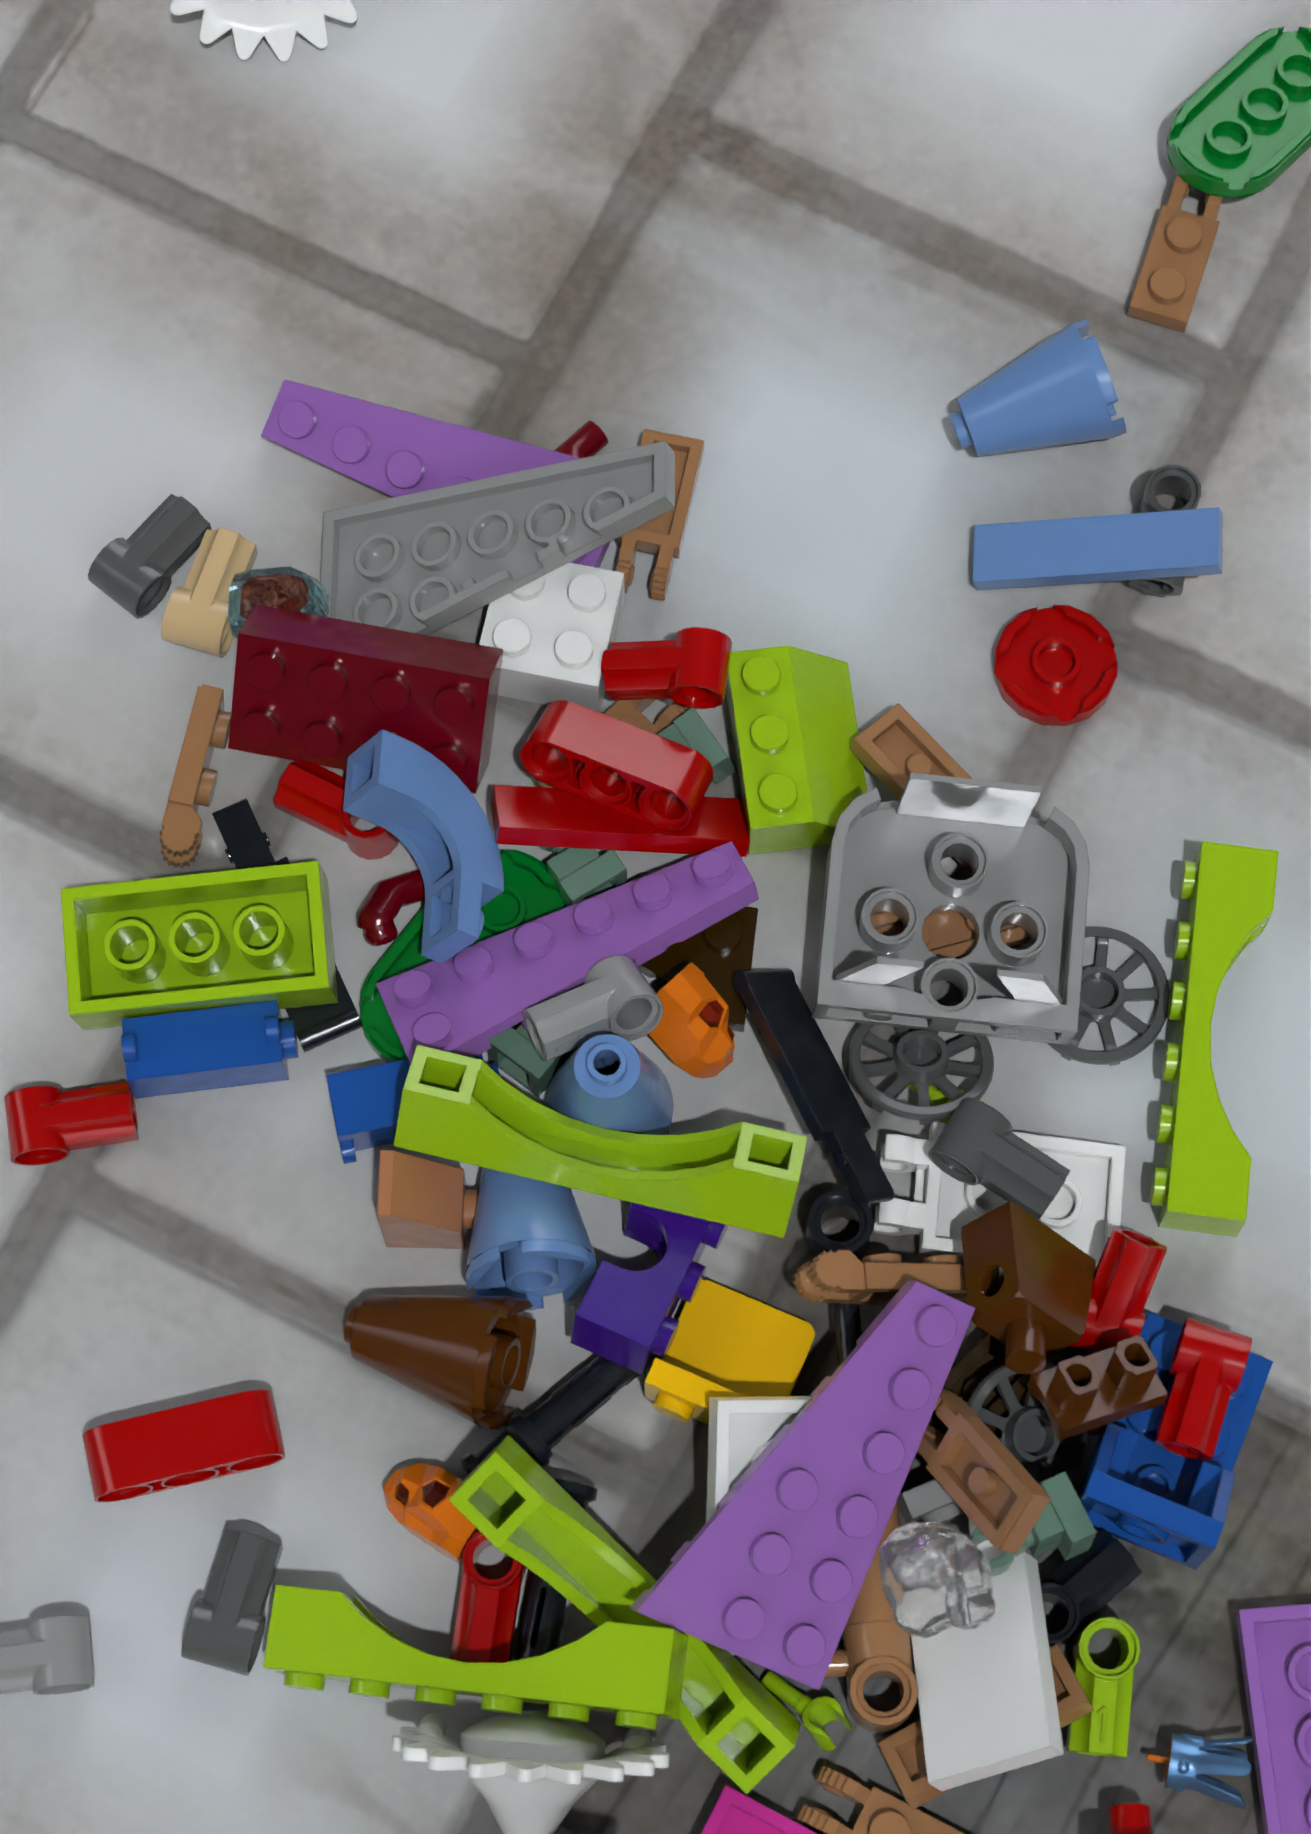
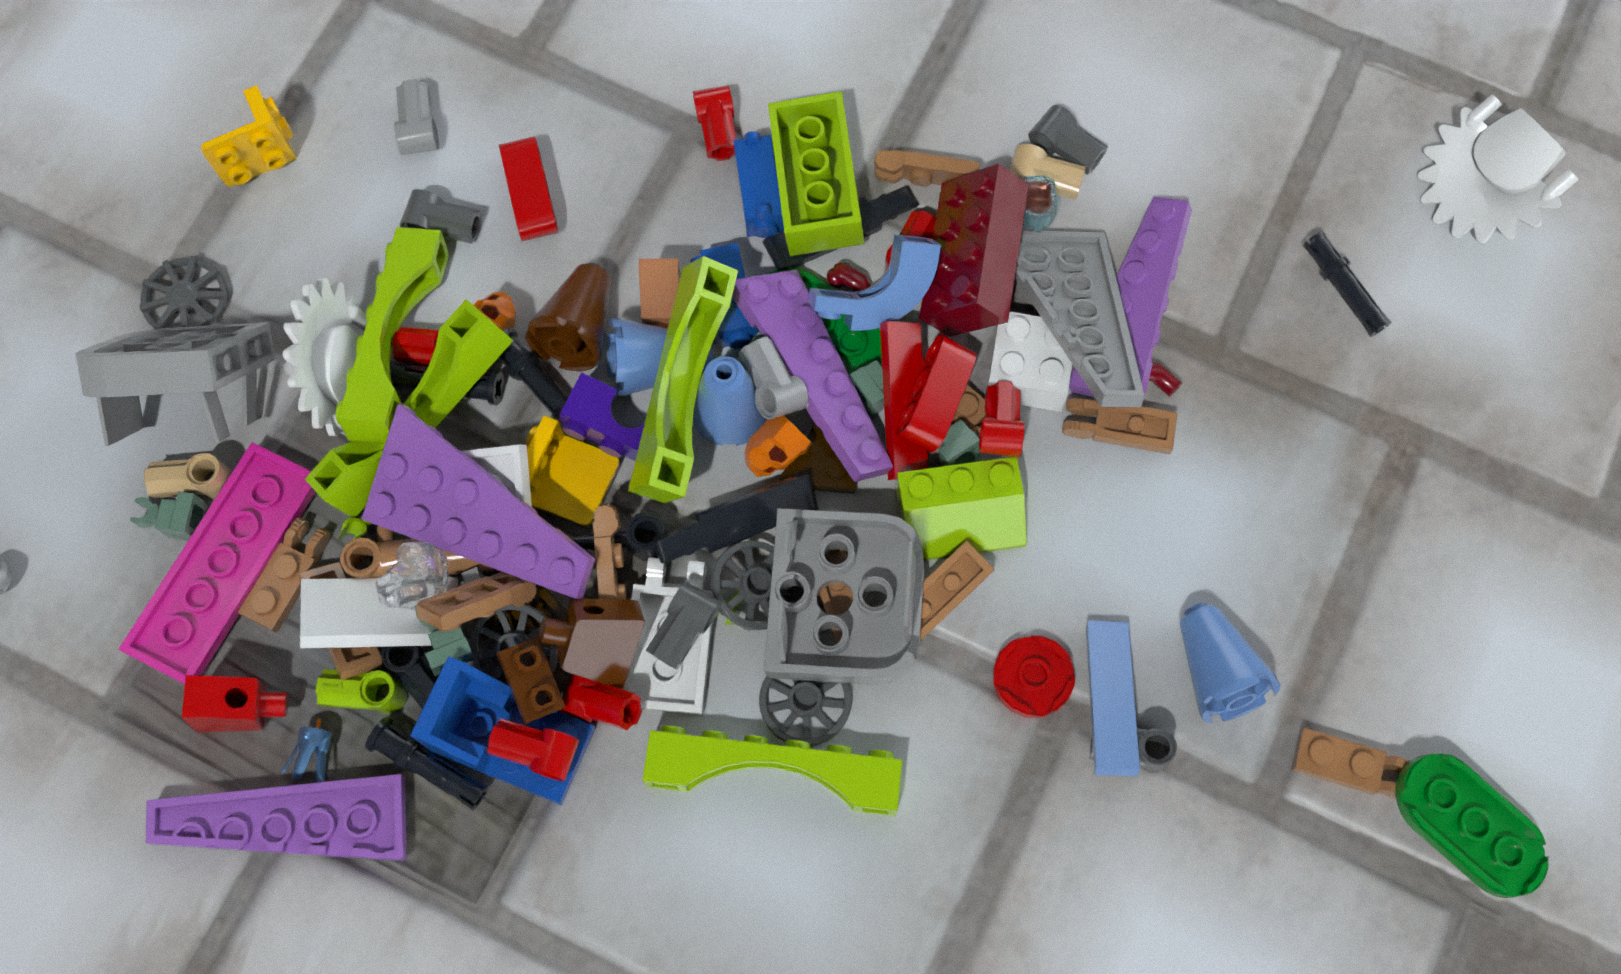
camera: 90 degrees right, 0 degrees up
(411, 184) = (1337, 271): none -> black pin
(1203, 1599) = (412, 755): none -> black pin

